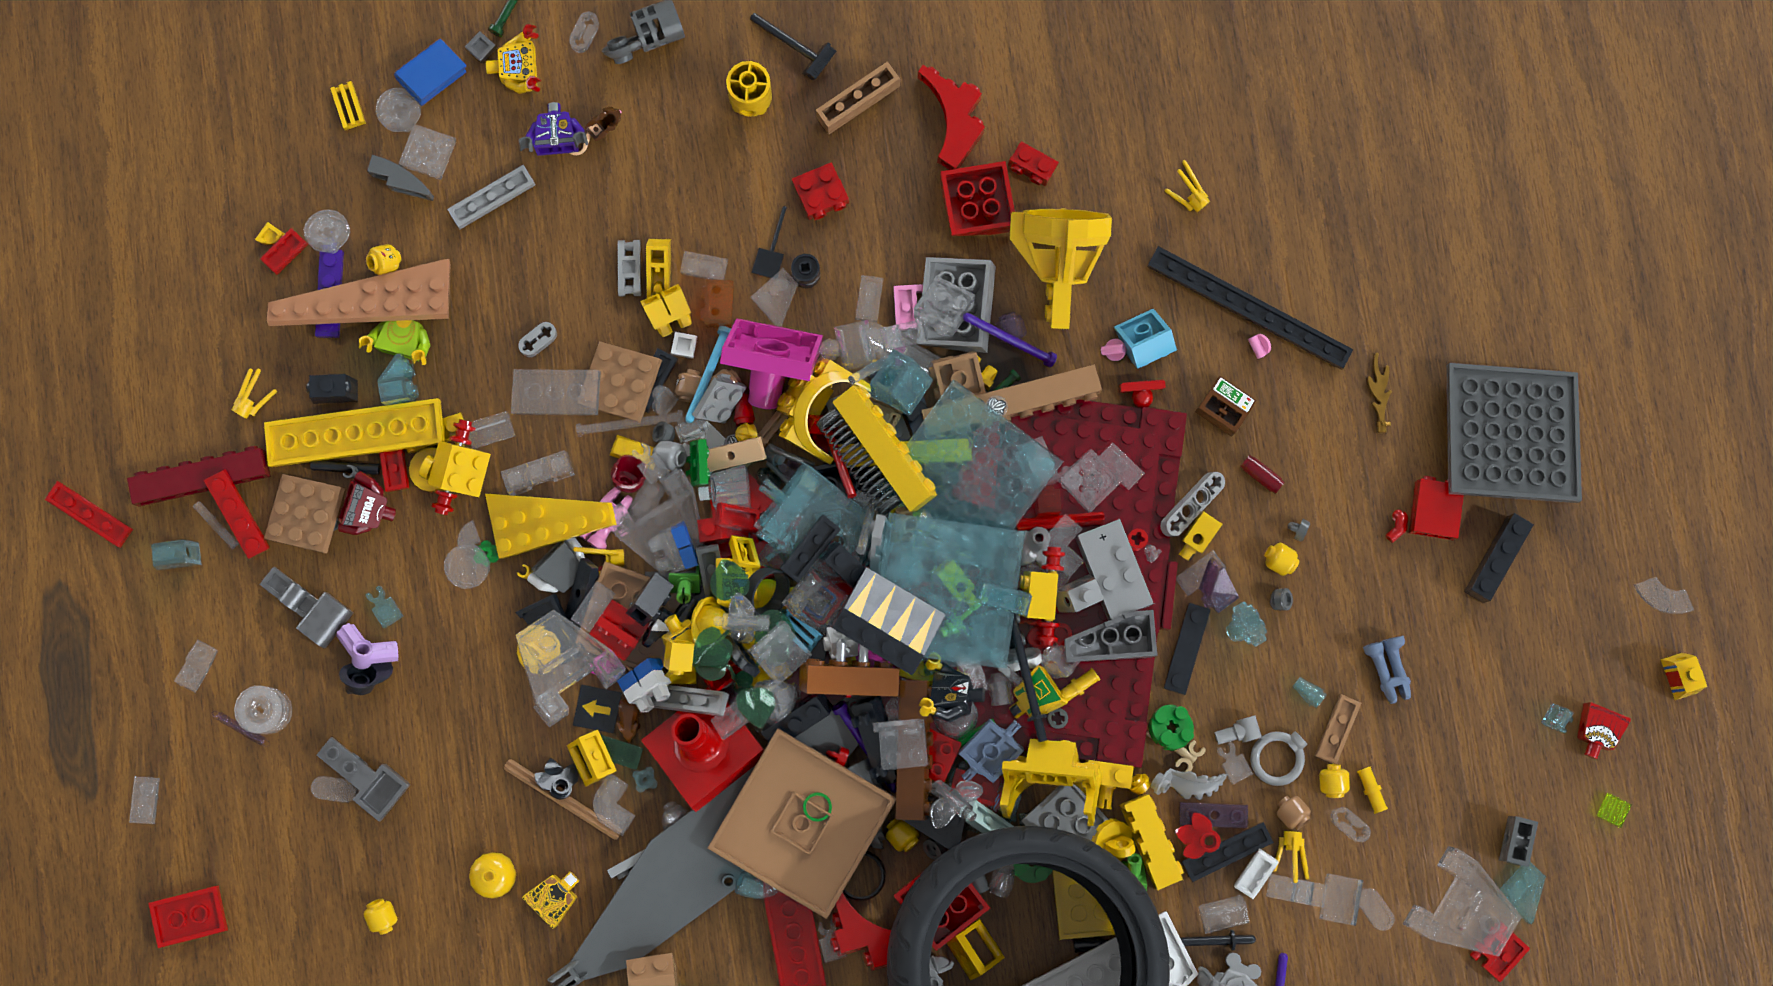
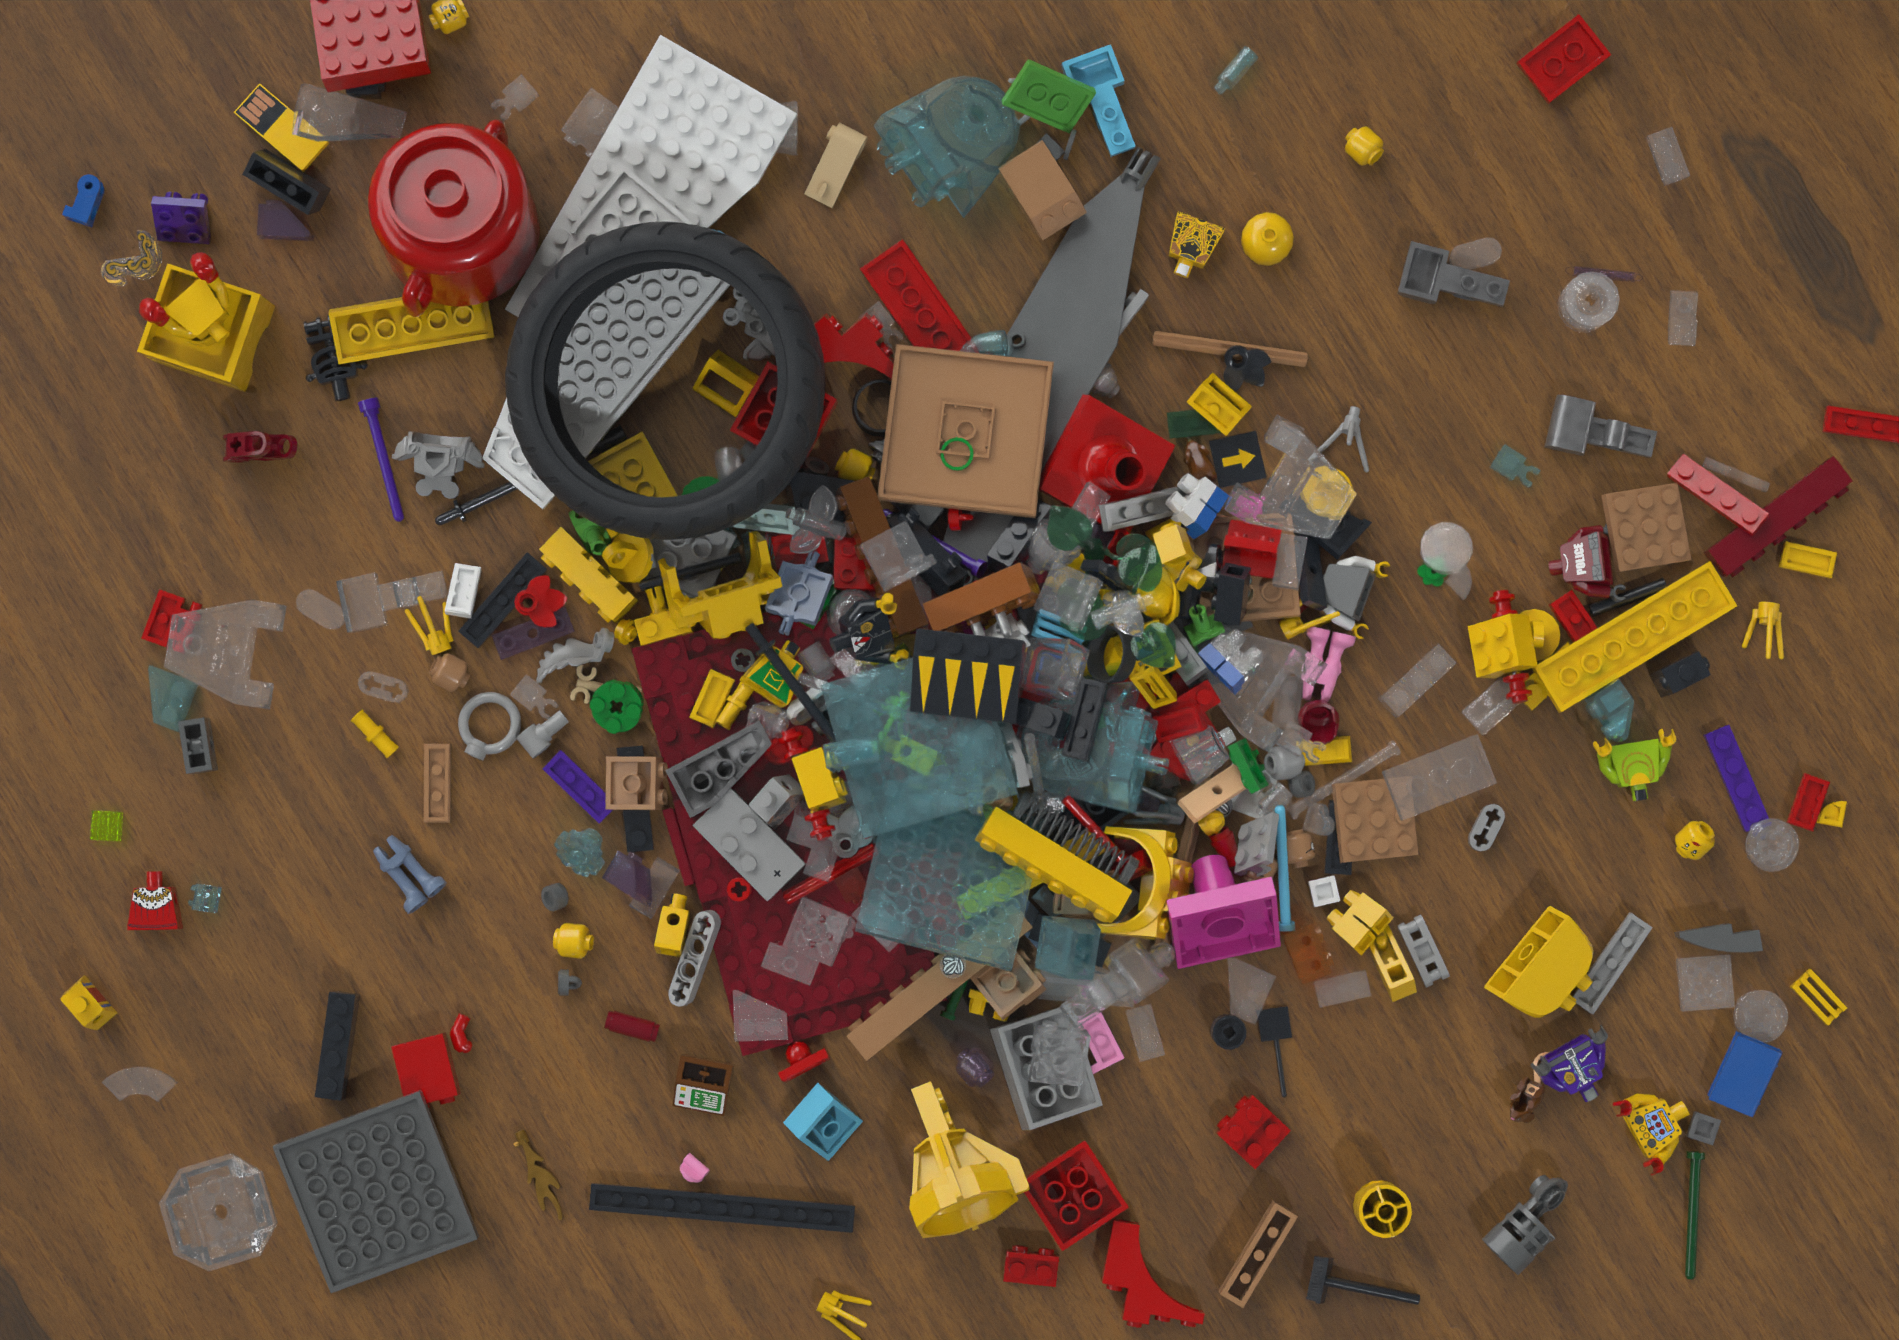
camera: 165 degrees right, 5 degrees up
(173, 554) = (1761, 423): clear light blue torso -> none
(193, 435) = (1807, 559): none -> yellow tile
(364, 680) = (1499, 386): black piece -> none
(373, 652) = (1523, 413): lavender piece -> none
(394, 296) = (1664, 803): nougat wing -> none
(496, 693) = (1351, 428): none -> light grey plant
(535, 522) = (1392, 626): yellow wing -> none
(543, 214) = (1545, 966): none -> yellow hips
(589, 33) = (1604, 1197): clear beam -> none
(606, 805) = (1180, 360): clear plate -> none
(650, 783) = (1160, 407): clear light blue plate -> none
(867, 371) = (1109, 945): clear piece -> none
(1048, 358) = (919, 1051): dark purple bar -> none
(1066, 807) = (694, 570): none -> black bar
(1094, 699) = (712, 698): none -> yellow tile
(1114, 349) = (851, 1094): bright pink plate -> none
(1151, 553) = (716, 882): clear rock -> none
(1164, 434) = (757, 1020): none -> clear wing
(1182, 659) = (635, 783): none -> medium nougat plate
(1224, 914) = (479, 534): clear slope -> none
(1226, 677) = (578, 785): none -> dark purple plate
(1309, 692) = (483, 809): clear light blue cone -> none
(1334, 781) = (419, 724): yellow head -> none
(1664, 465) = (192, 1219): none -> clear piece

